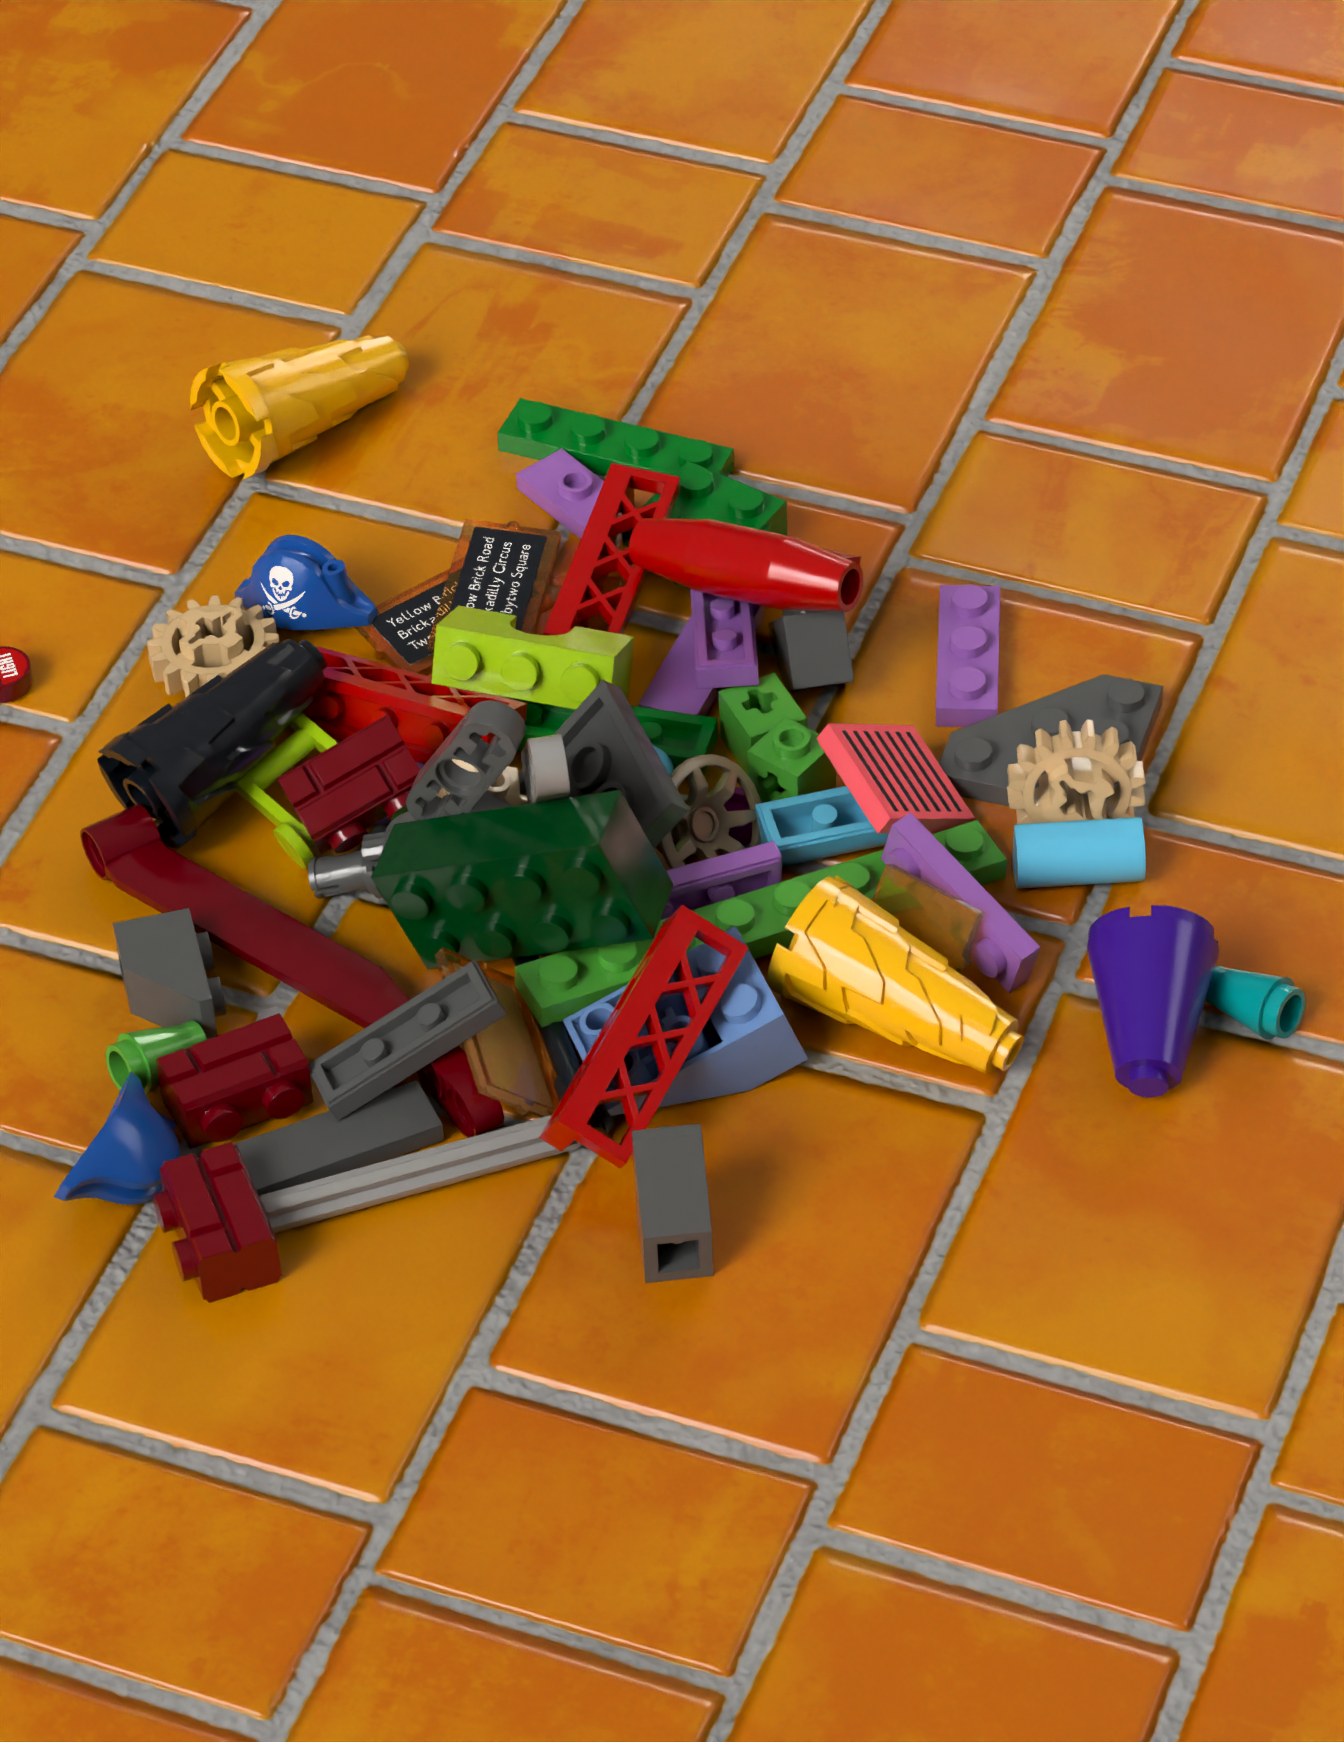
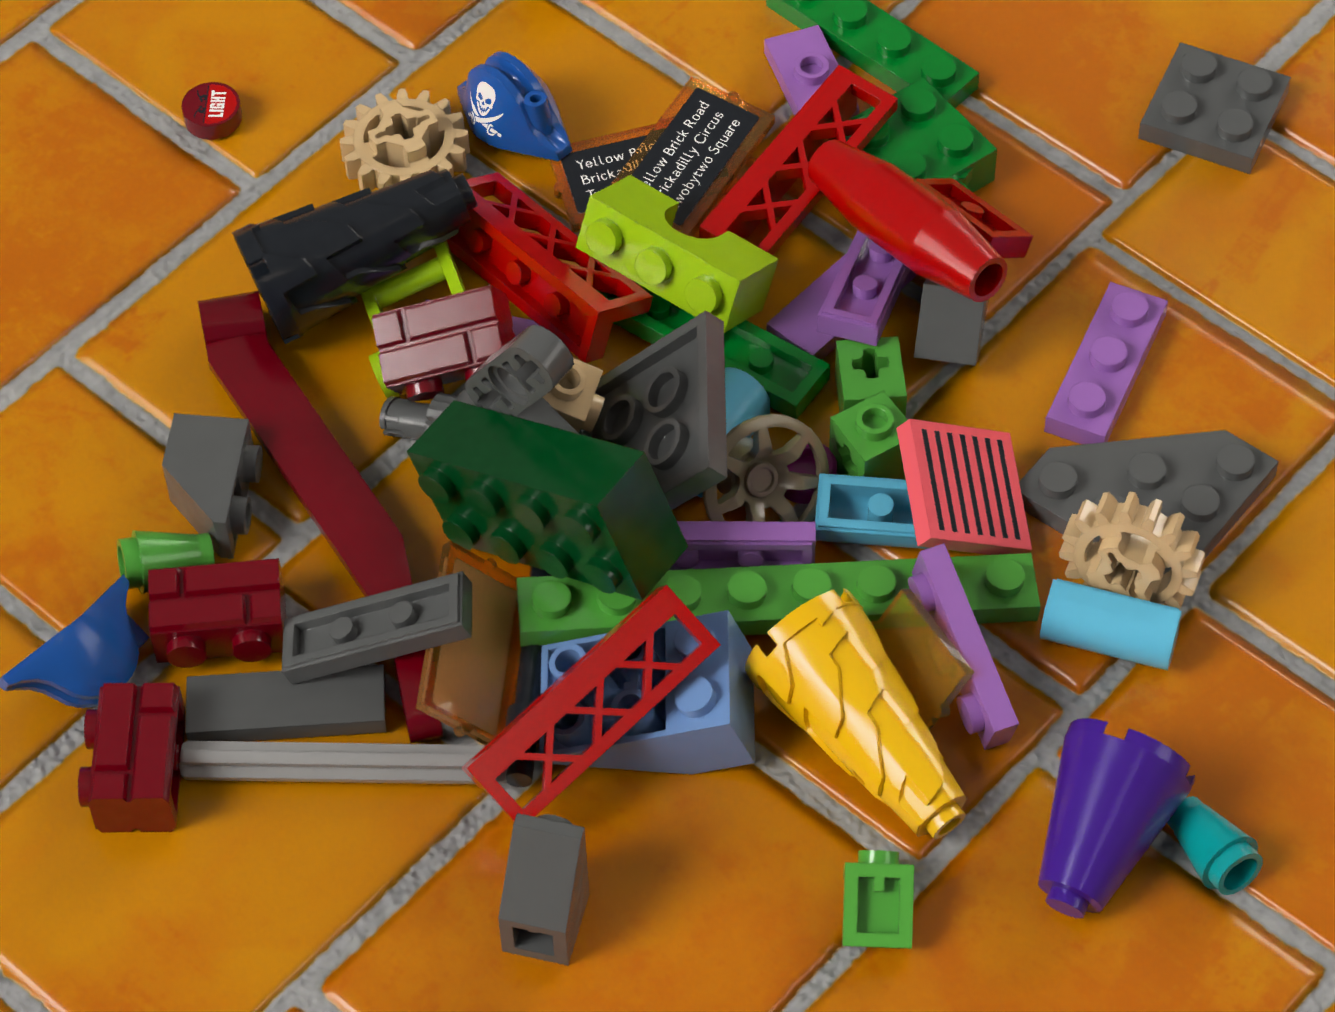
camera: 20 degrees right, 10 degrees up
(545, 769) = (595, 401): light grey beam -> none
(962, 423) = (1214, 108): none -> dark grey plate
(978, 1130) = (878, 901): none -> bright green bracket

